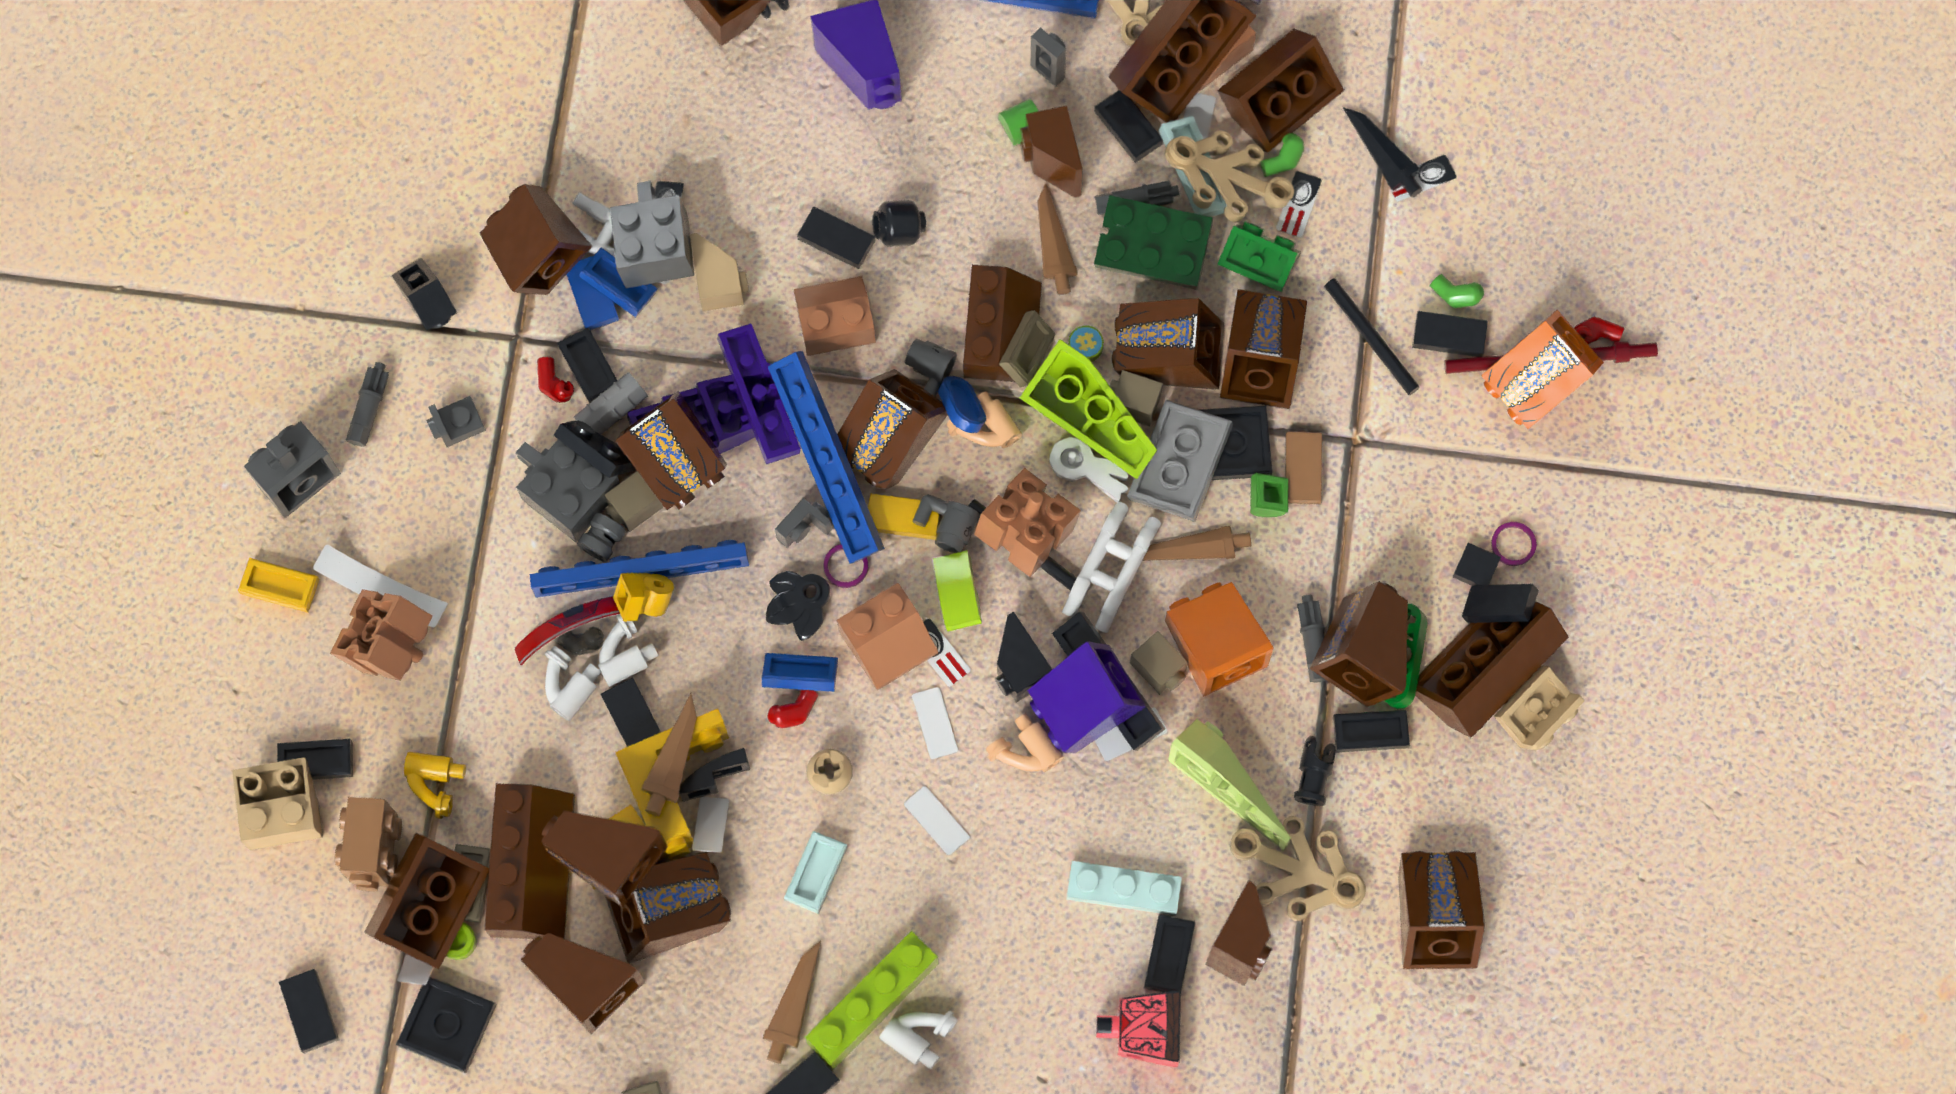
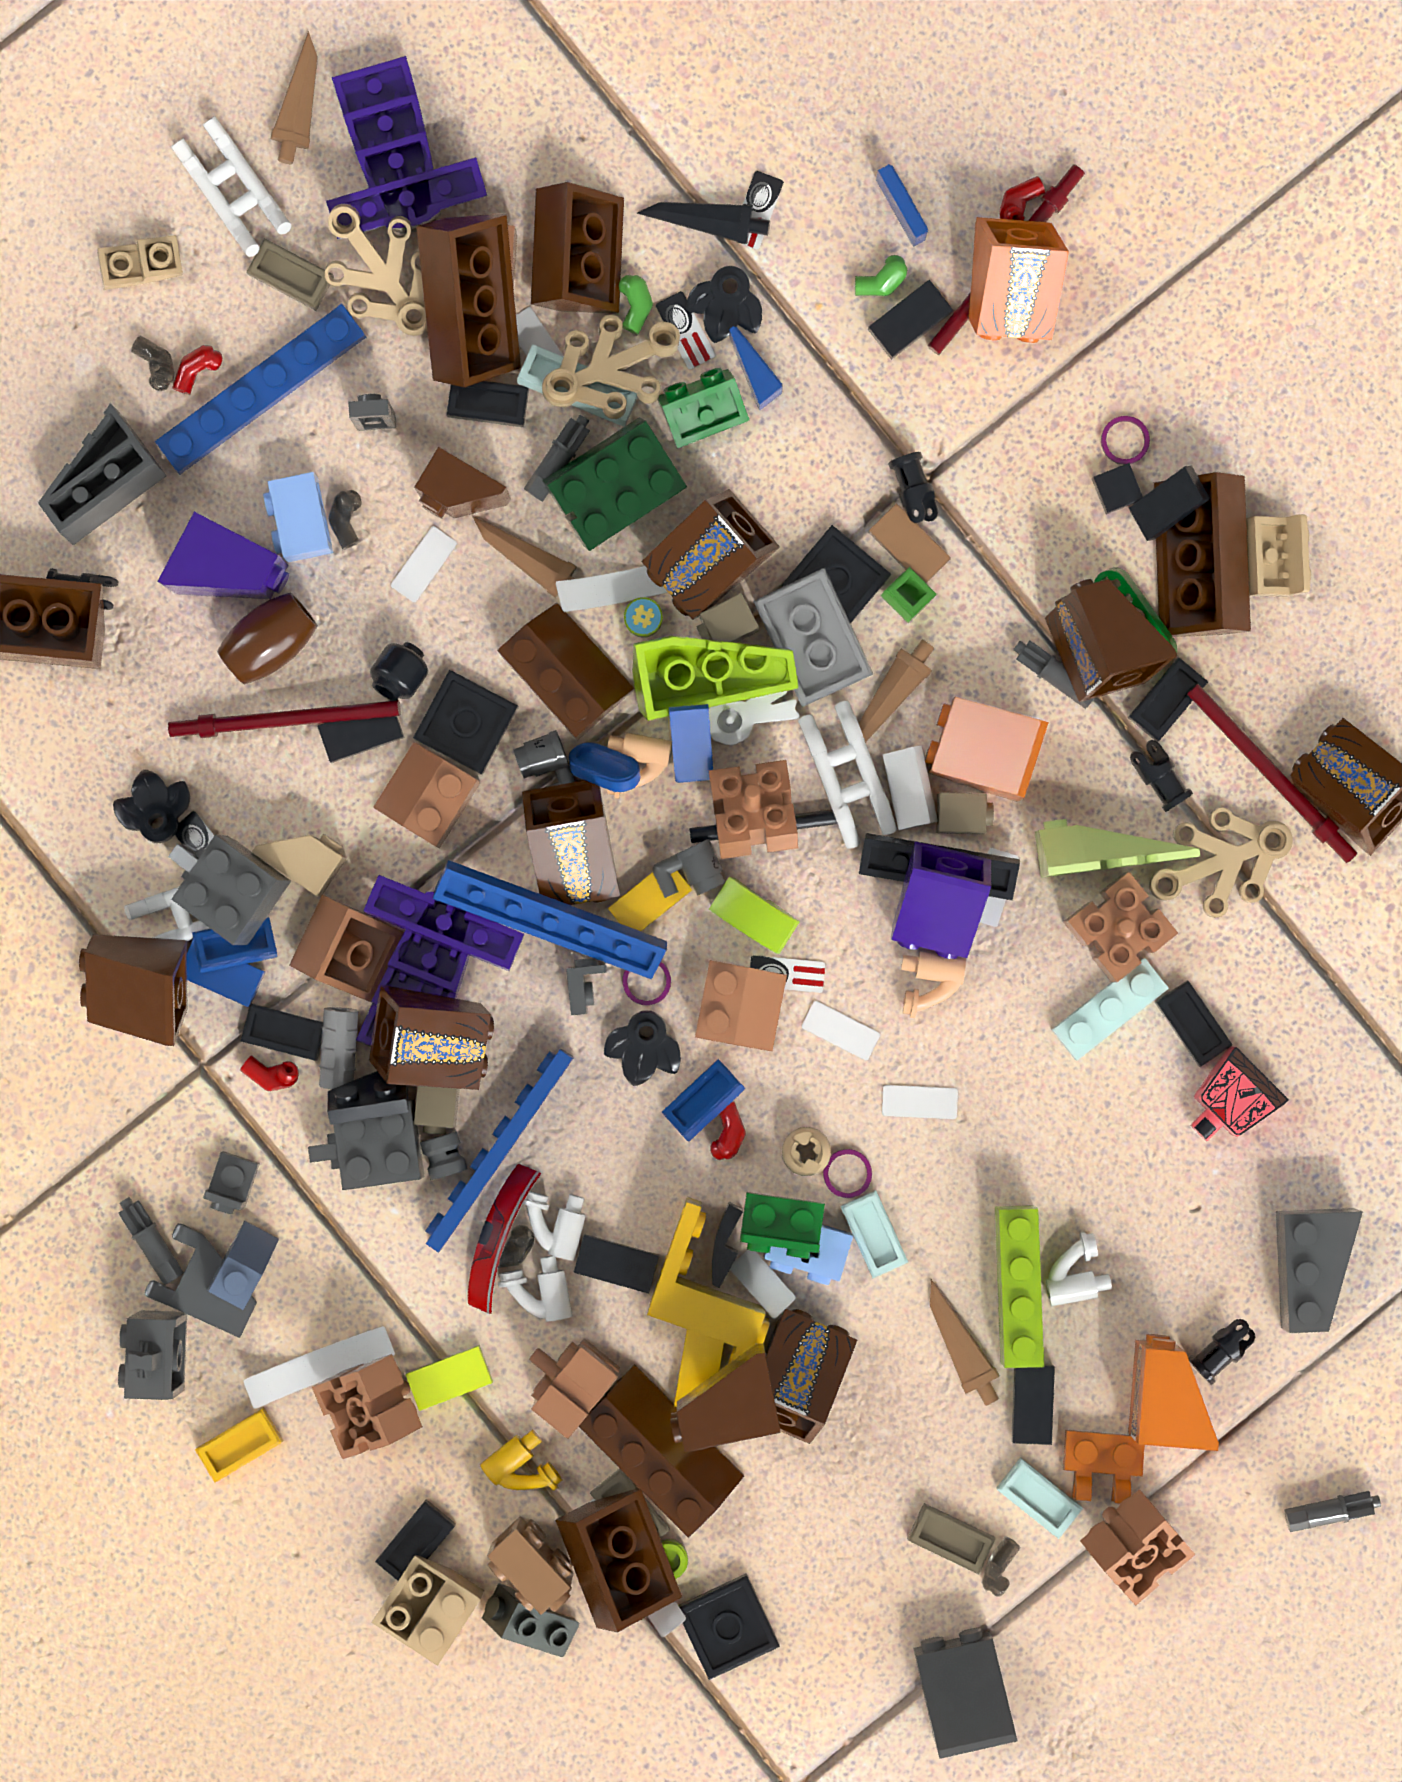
camera: 45 degrees left, 15 degrees up
(308, 1011) = (618, 1723): black tile -> none
(326, 885) = (515, 1623): none -> pearl dark grey bracket
(369, 469) = (192, 1294): none -> dark grey flag
(404, 474) = (243, 1265): none -> sand blue slope
(424, 294) = (95, 1111): black slope -> none
(451, 679) = (449, 1378): none -> neon yellow tile
(525, 757) = (571, 1385): none -> nougat brick
(581, 978) = (795, 1498): reddish brown slope -> none
(642, 595) = (524, 1168): yellow leg -> none
(664, 152) = (150, 801): none -> black plate
(668, 769) = (701, 1285): medium nougat bar -> none
(681, 350) = (346, 948): none -> nougat slope
(750, 143) = (210, 725): none -> dark red bar
(757, 811) = (822, 1267): none -> light blue brick
(763, 791) = (781, 1224): none -> green bracket
(840, 123) = (267, 638): none -> reddish brown piece
(840, 797) = (852, 1194): none -> magenta piece
(906, 296) = (465, 722): none -> black tile
(938, 76) = (299, 517): none -> light blue brick
(962, 102) = (340, 516): none -> clear smoke arm
(984, 180) = (423, 564): none -> white sticker
(1015, 118) = (399, 486): bright green brick -> none
(1019, 660) = (858, 921): black slope -> none
(1027, 348) = (607, 671): dark tan tile -> none
(1032, 441) = (691, 742): none -> slope
(1078, 300) = (606, 589): none -> white sticker
(1142, 613) = (910, 787): none -> white tile
(1186, 838) = (1120, 927): none -> nougat brick
(1241, 944) = (1245, 965): reddish brown slope -> none
(1263, 349) = (784, 480): reddish brown slope -> none
(1313, 276) = (760, 378): none -> blue slope
(1336, 213) = (725, 309): none -> black plate
(1343, 435) = (915, 490): none -> black piece
(1372, 336) = (853, 383): black bar -> none
(1389, 917) = (1323, 828): none -> dark red bar
(1517, 259) = (902, 204): none -> blue tile

